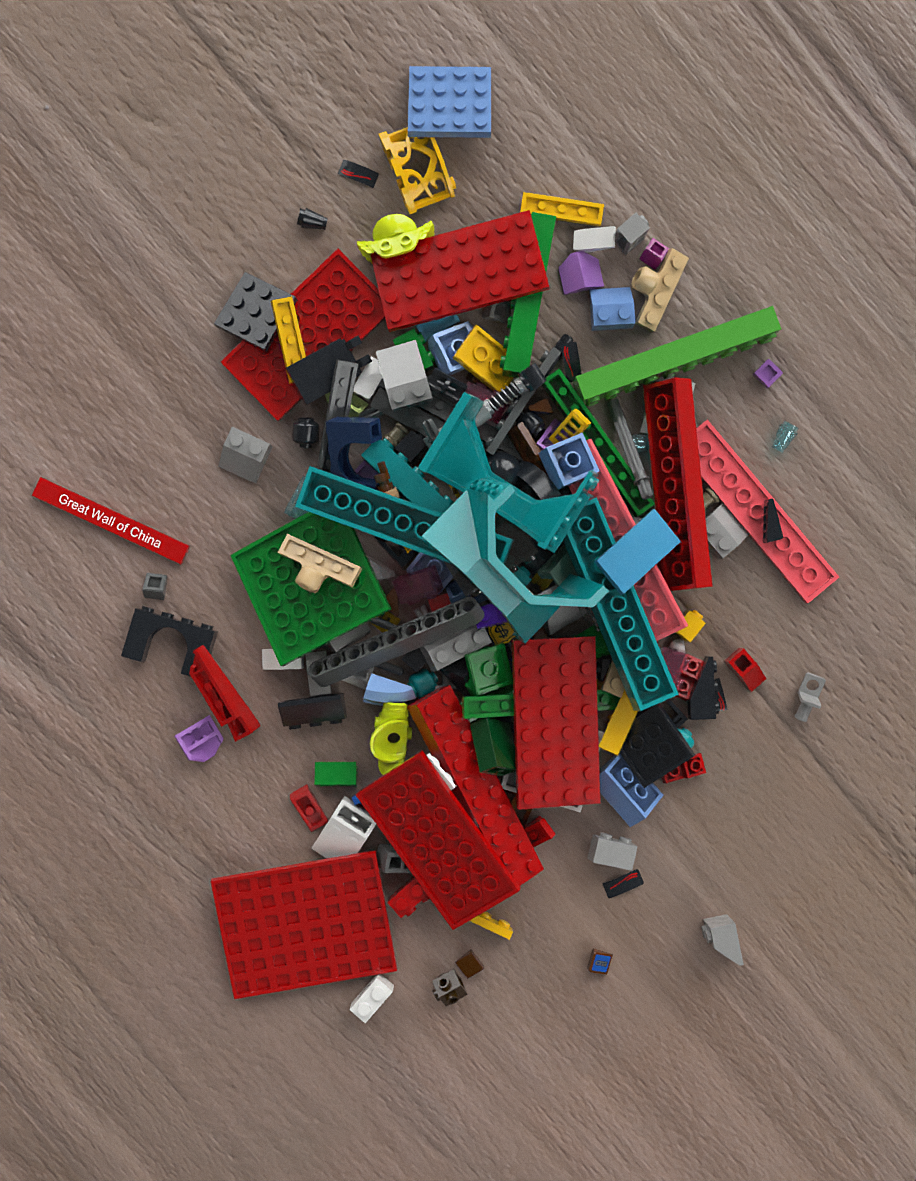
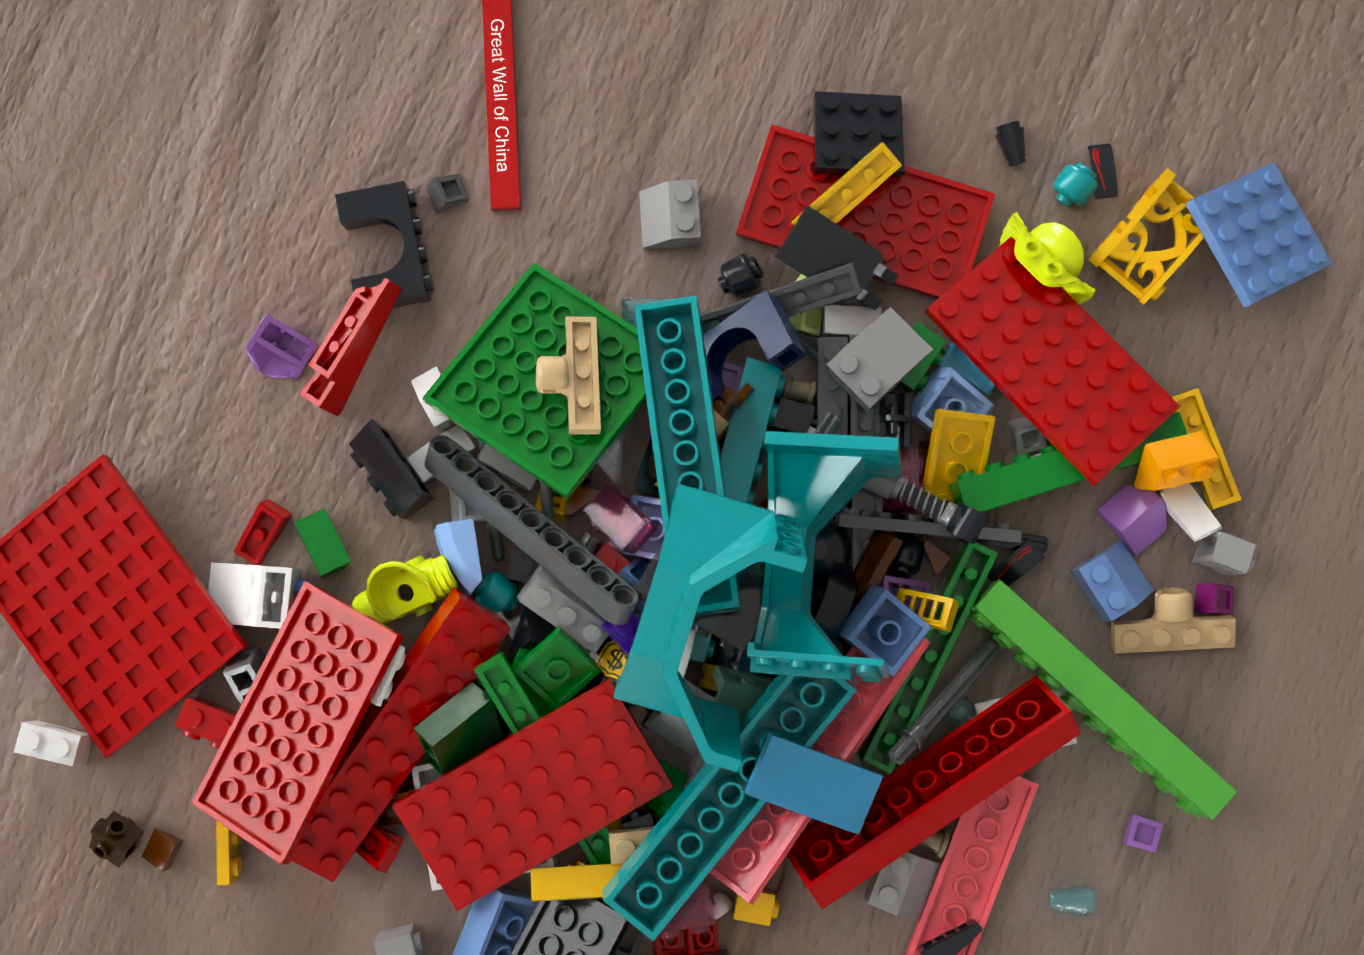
camera: 65 degrees right, 5 degrees down
(359, 196) = (1075, 185): none -> teal head
(561, 231) = (1175, 462): none -> light orange slope

